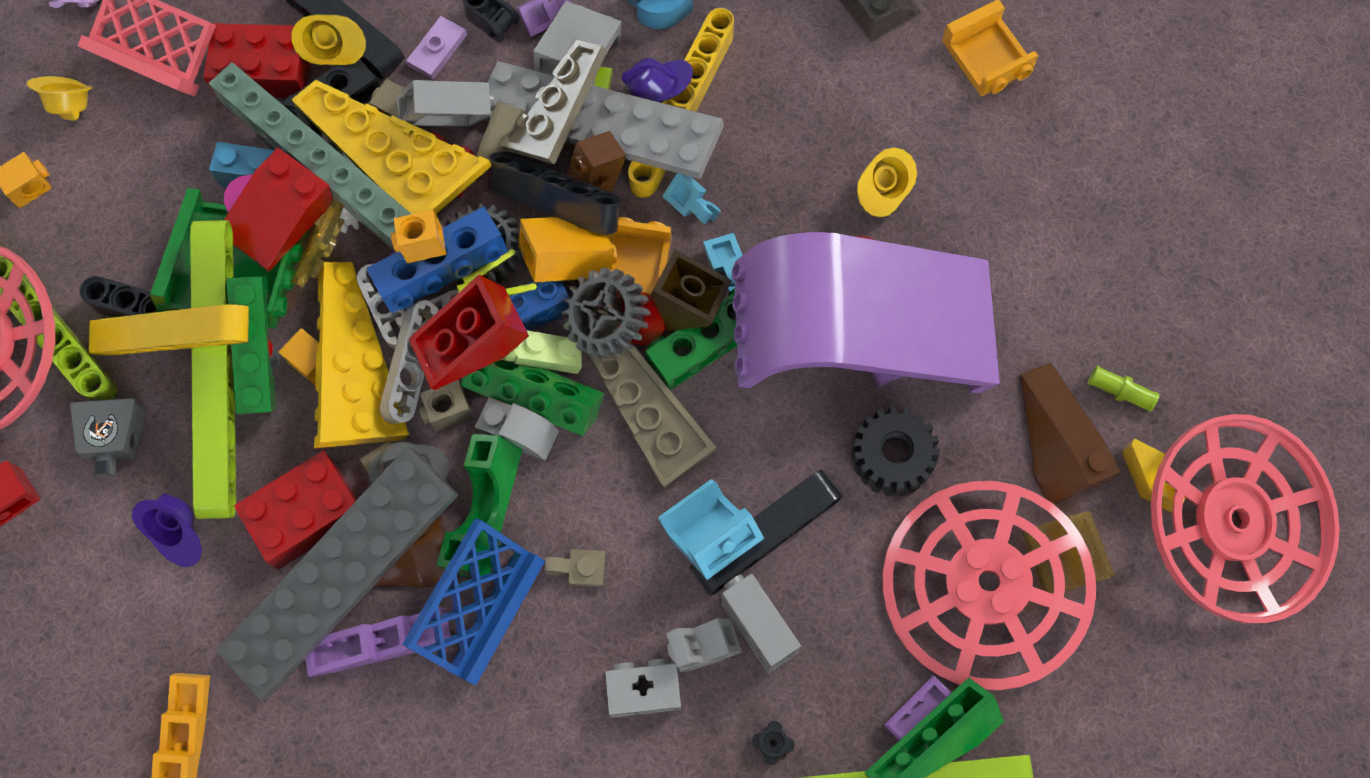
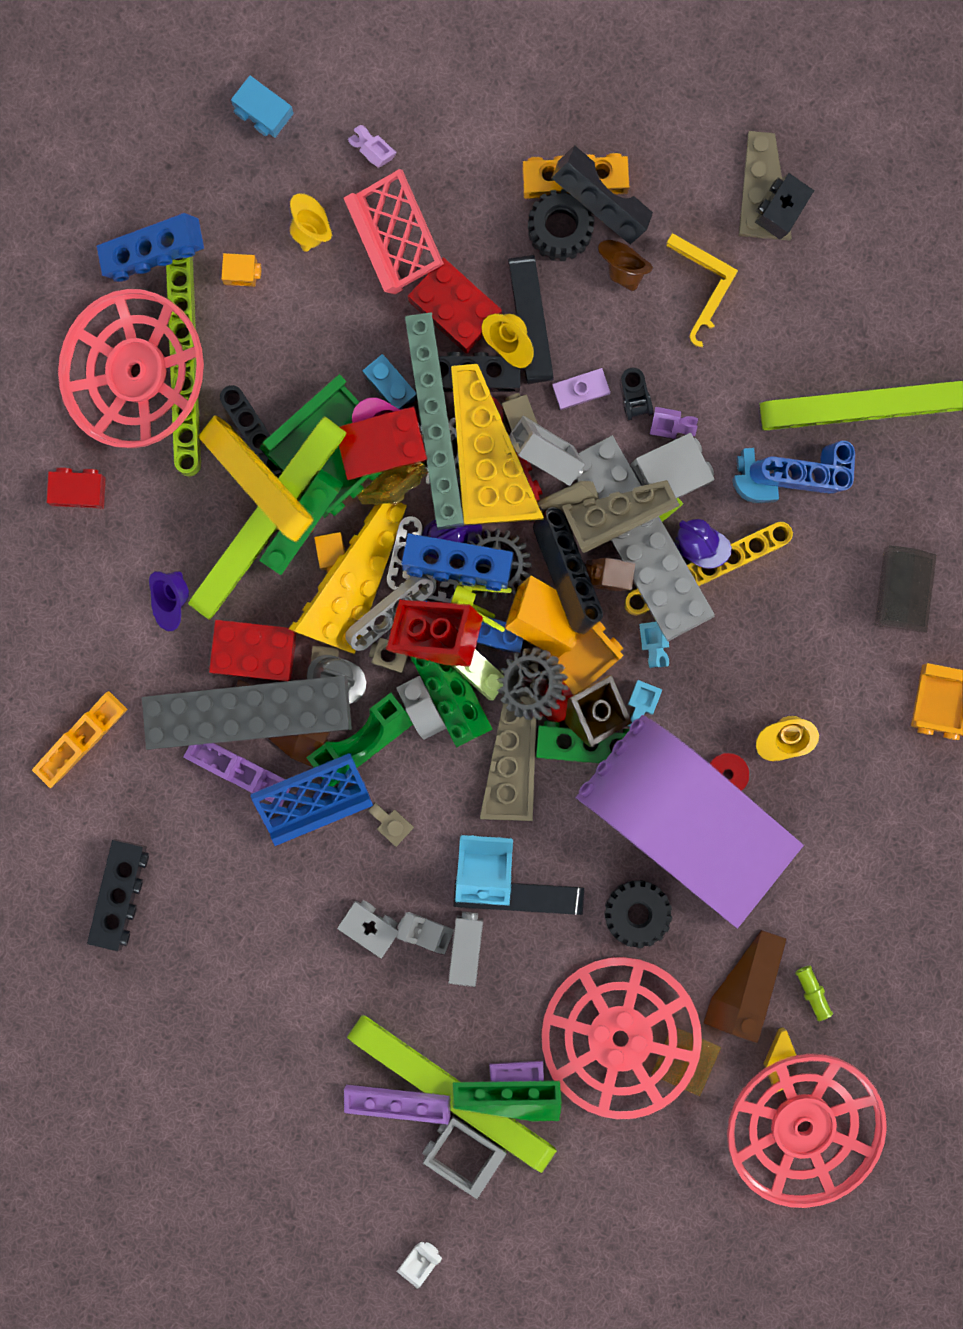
camera: 40 degrees right, 15 degrees up
(107, 432) = (173, 501): dark grey torso -> none
(430, 239) = (460, 554): light orange brick -> none
(773, 732) = (422, 1026): black plate -> none

